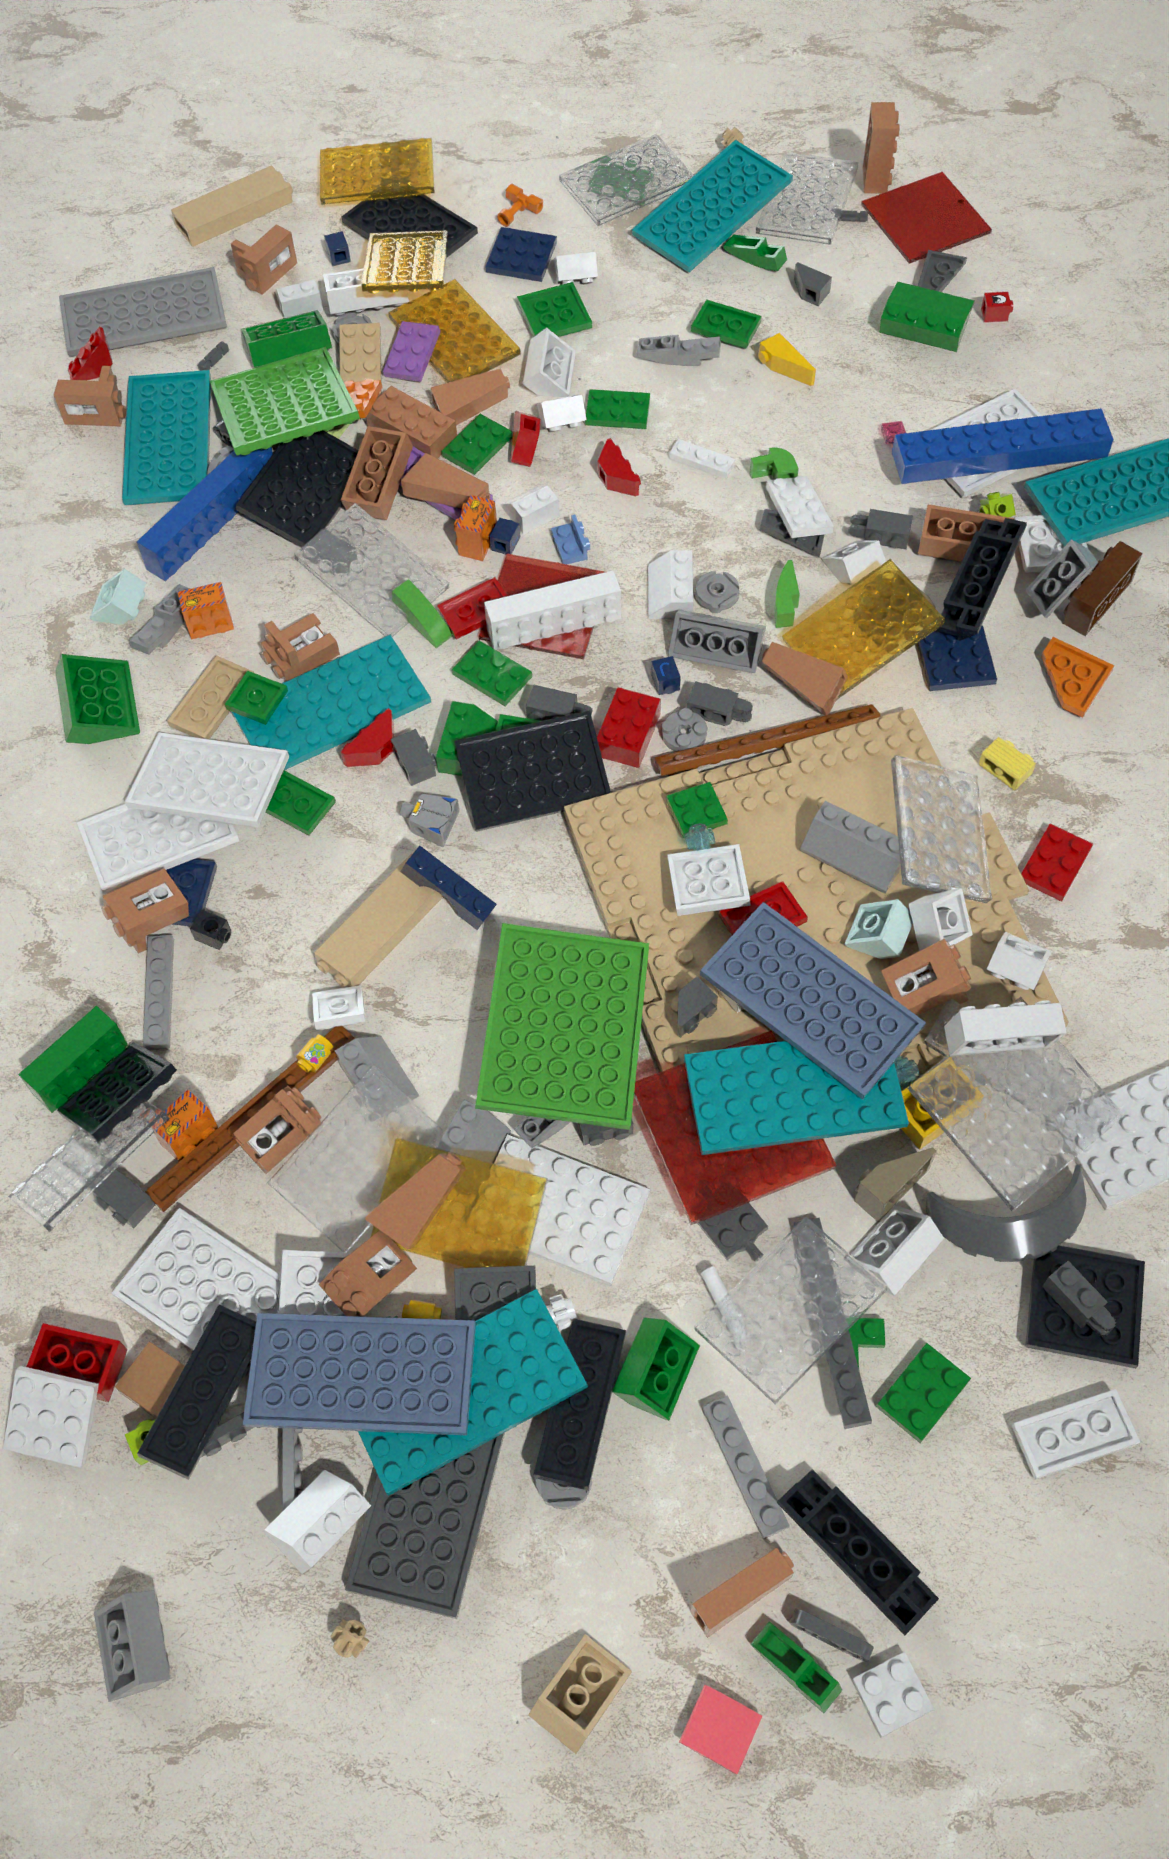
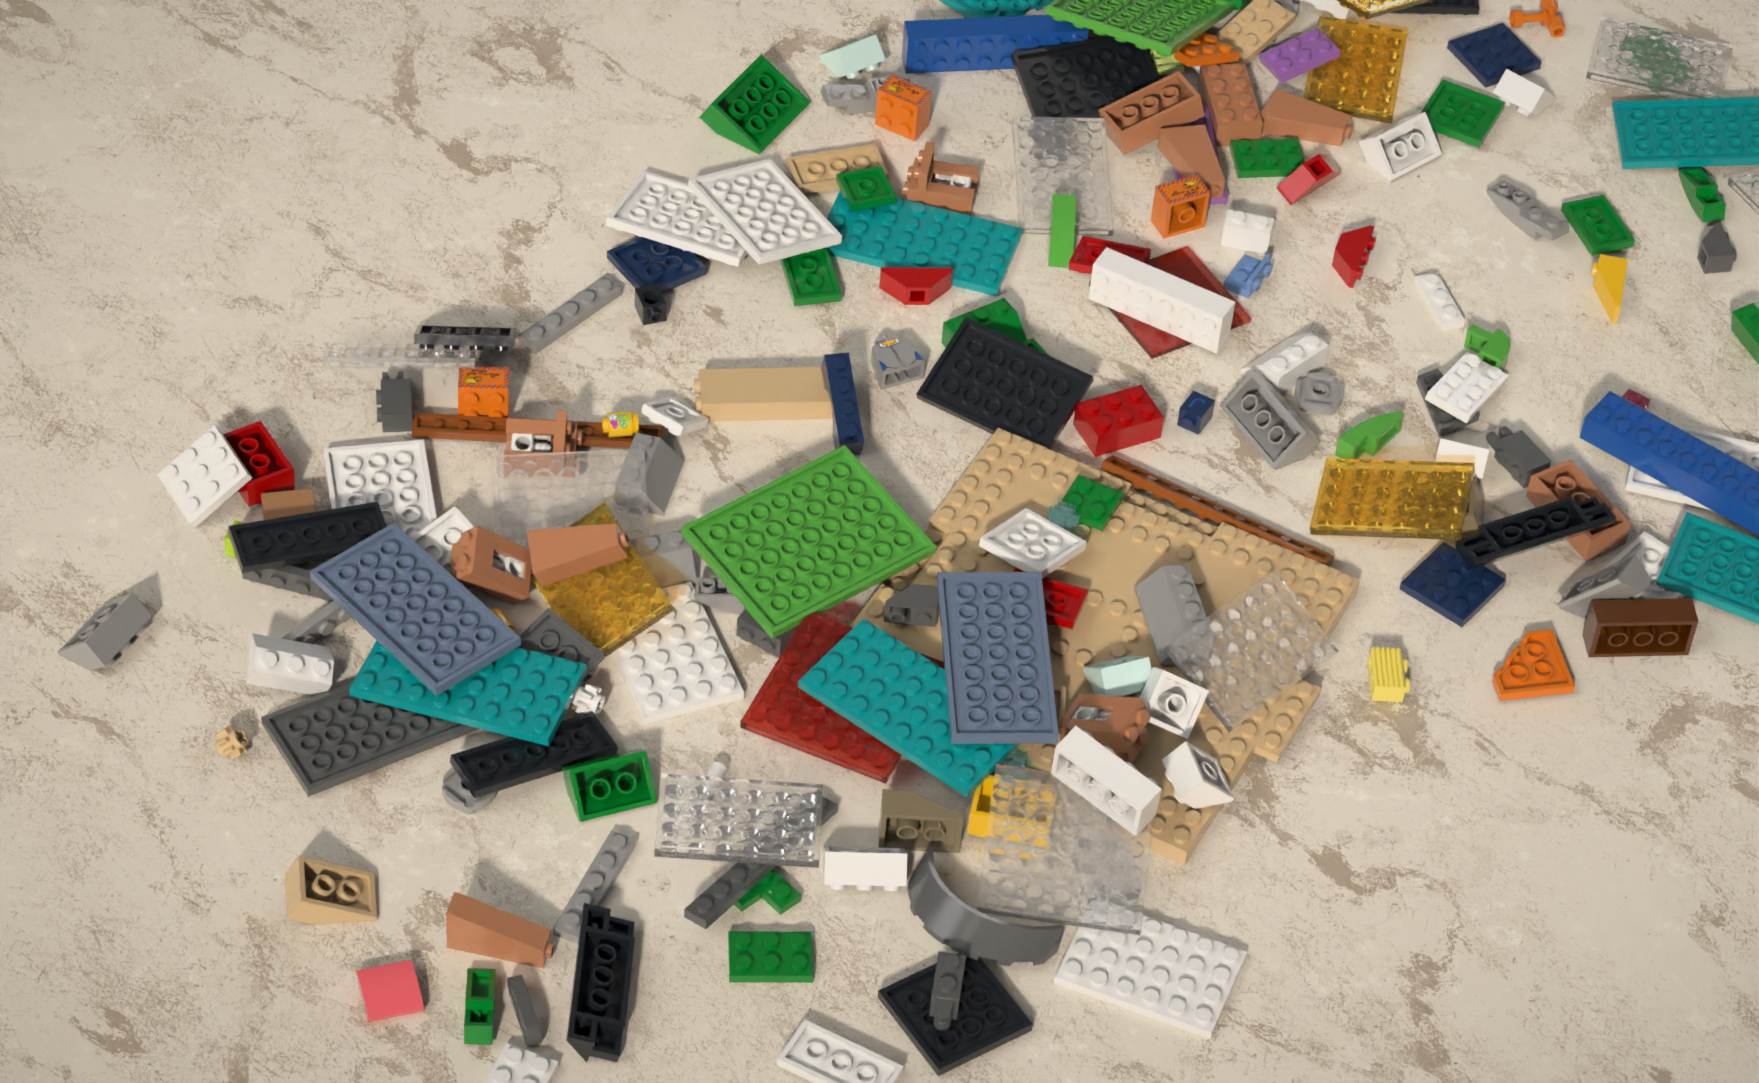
camera: 40 degrees right, 15 degrees down
(73, 1059) = (463, 299): green brick -> none
(144, 908) = (618, 250): nougat brick -> none
(414, 757) = (931, 313): dark grey brick -> none
(492, 673) = (1067, 312): green plate -> none
(505, 536) = (1199, 231): dark blue brick -> none
(552, 703) = (1081, 356): dark grey hinge -> none
(562, 411) = (1364, 183): white slope -> none
(617, 409) = (1418, 218): green plate -> none
(684, 720) = (1171, 452): light grey plate -> none
(718, 704) = (1208, 460): dark grey hinge -> none
(735, 1231) = (770, 760): dark grey plate -> none
(807, 676) = (1303, 496): nougat slope -> none
(998, 505) = (1645, 514): lime brick -> none
(1056, 862) = (1333, 765): red plate -> none

